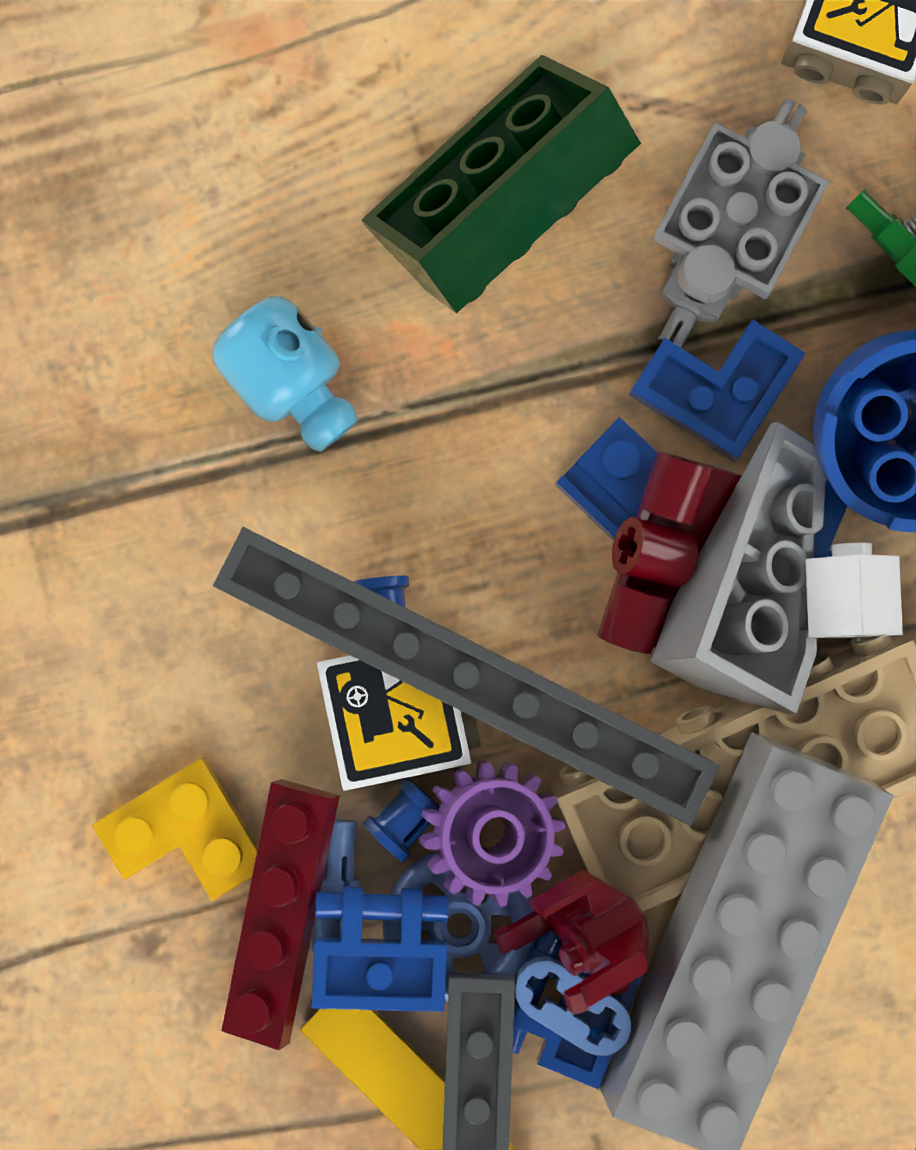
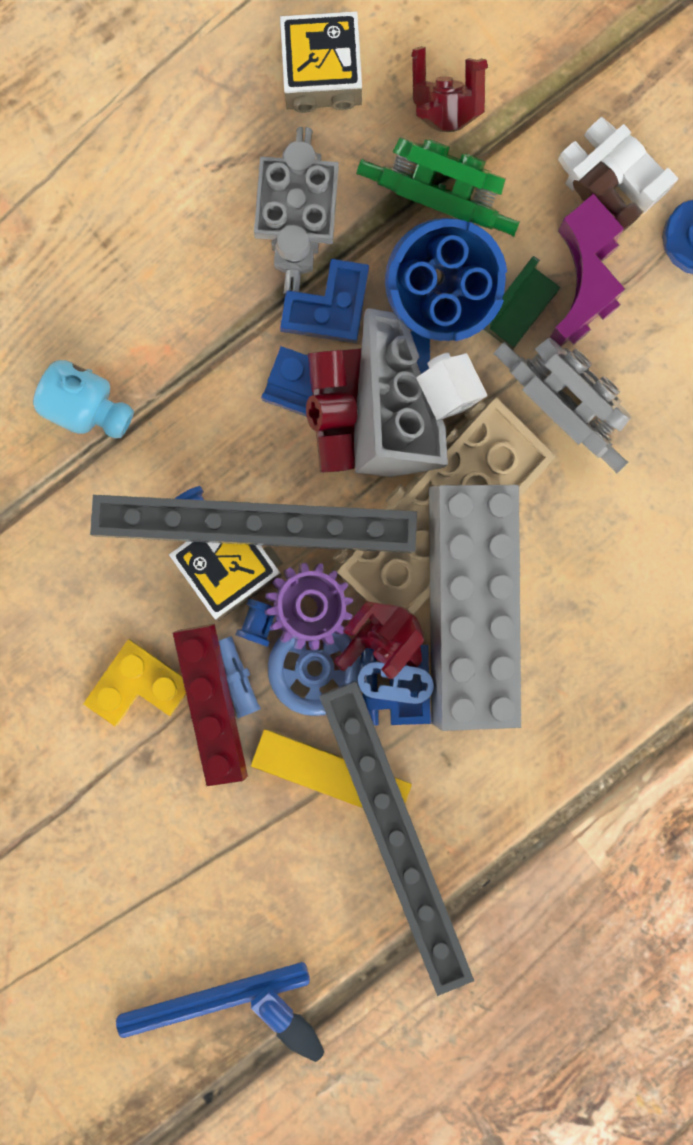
camera: 25 degrees left, 0 degrees up
(380, 972) = (279, 711): blue plate -> none
(503, 181) = (157, 242): dark green slope -> none

